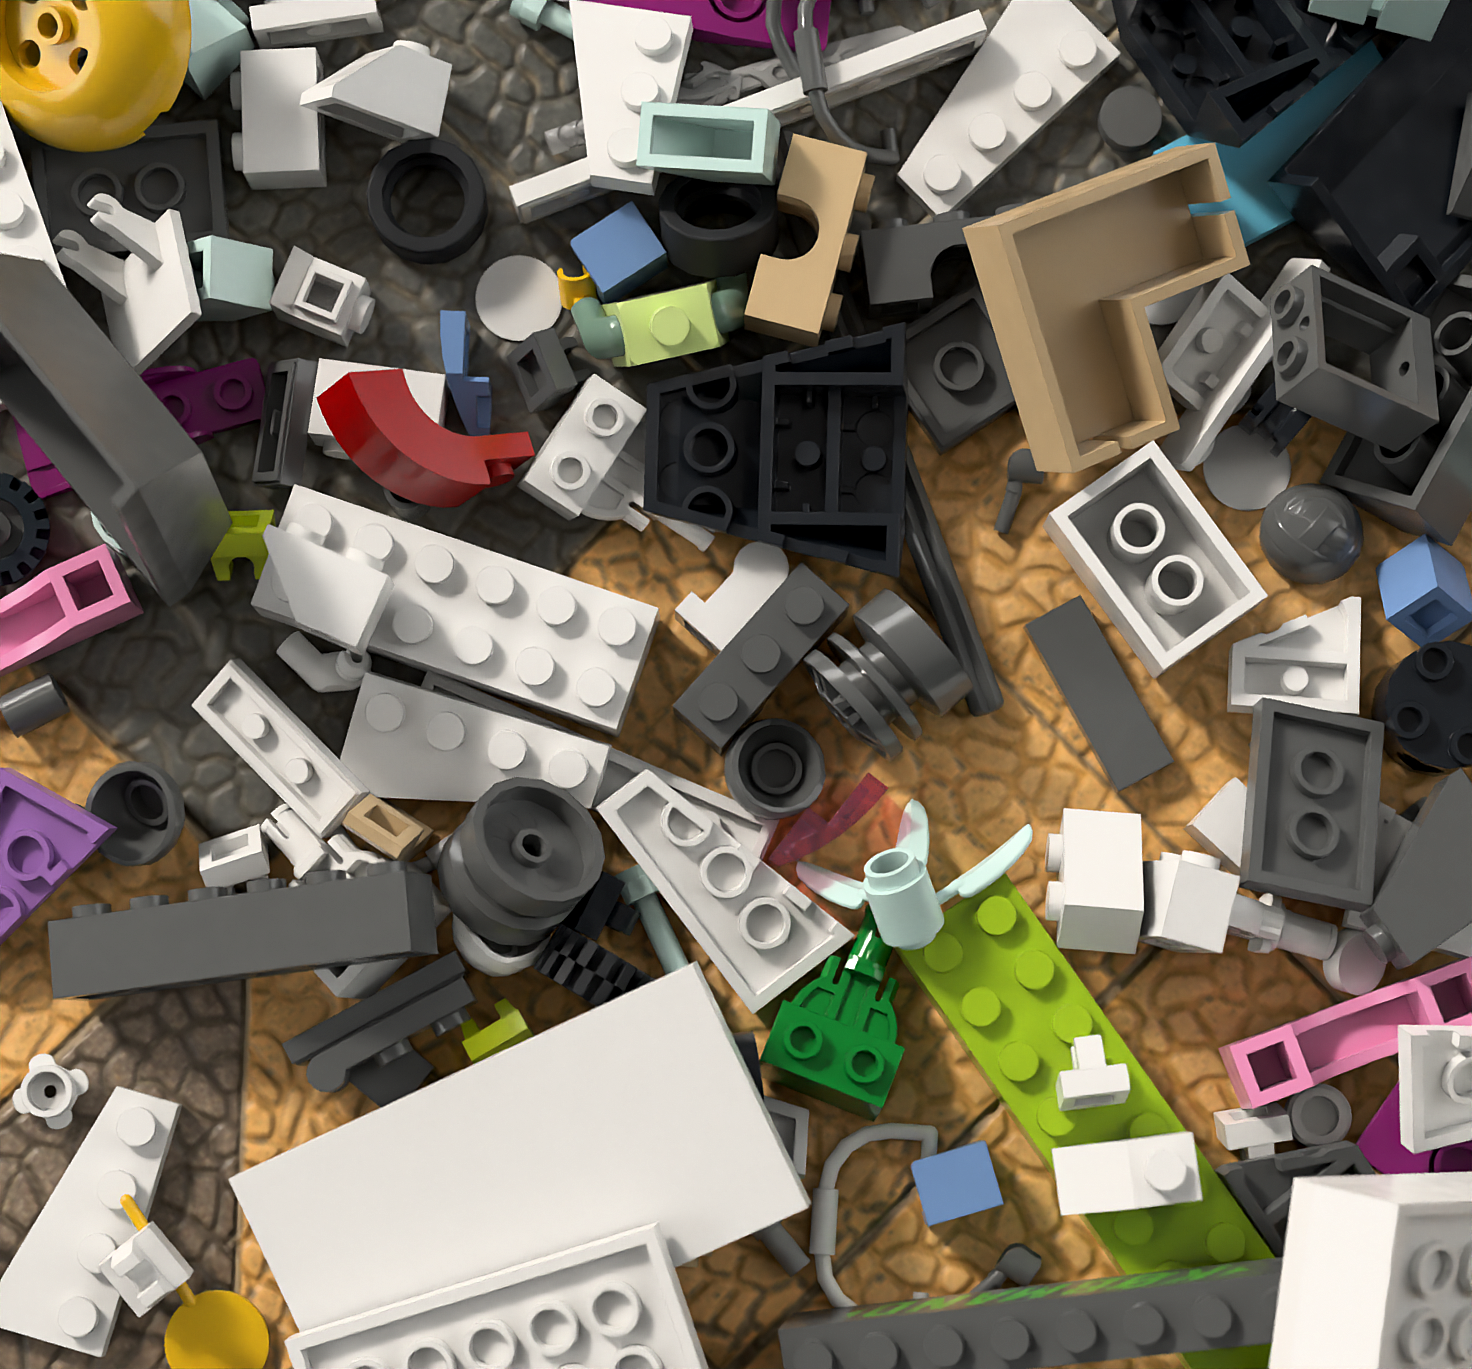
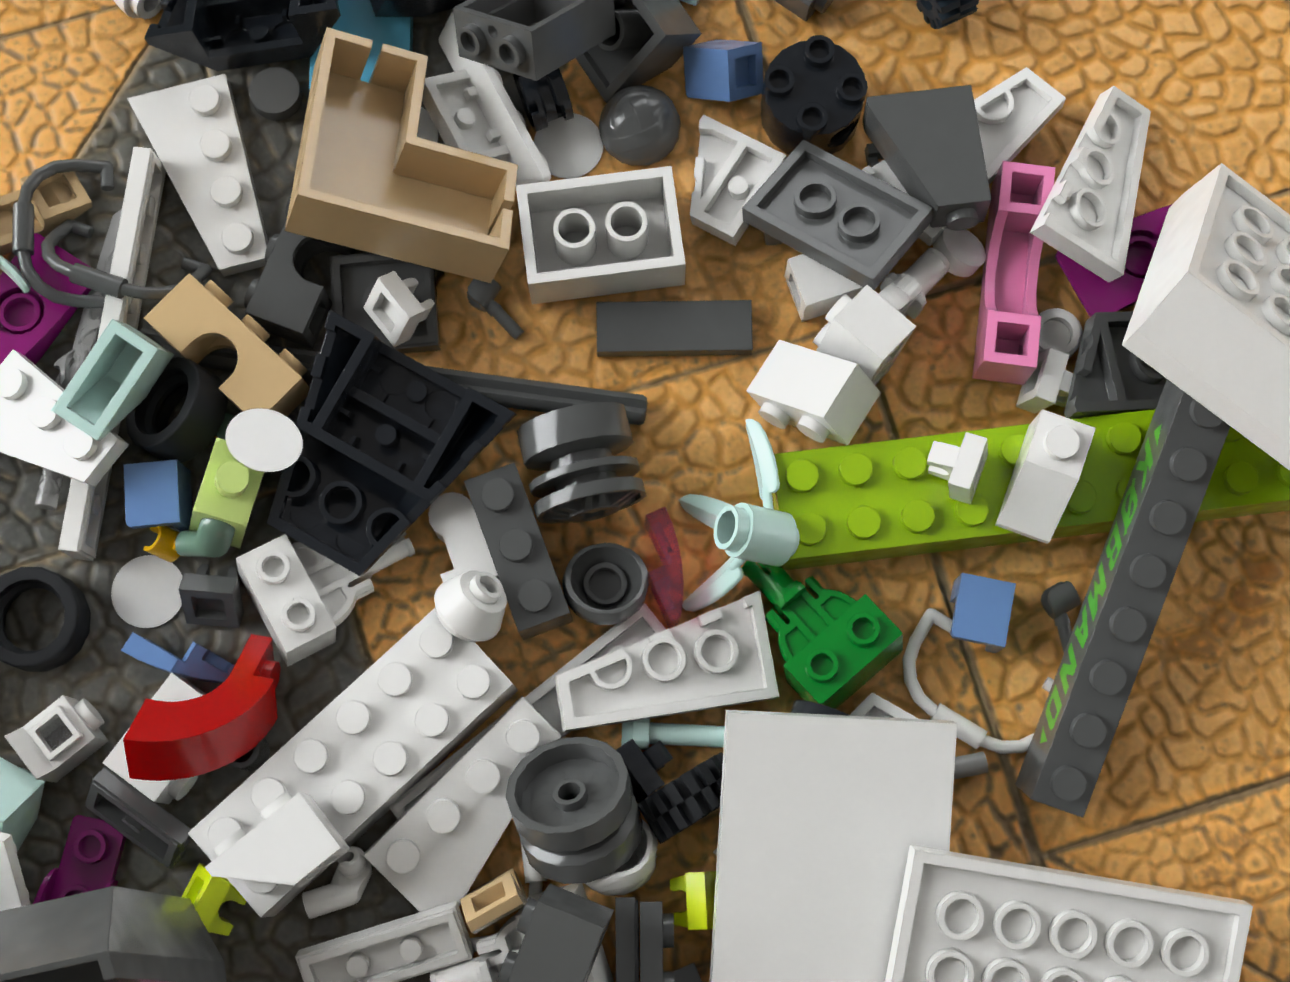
camera: 60 degrees left, 5 degrees down
(672, 642) = (471, 605): none -> white cone
(728, 334) = (264, 440): none -> white sticker
(952, 385) = (396, 308): none -> white tile

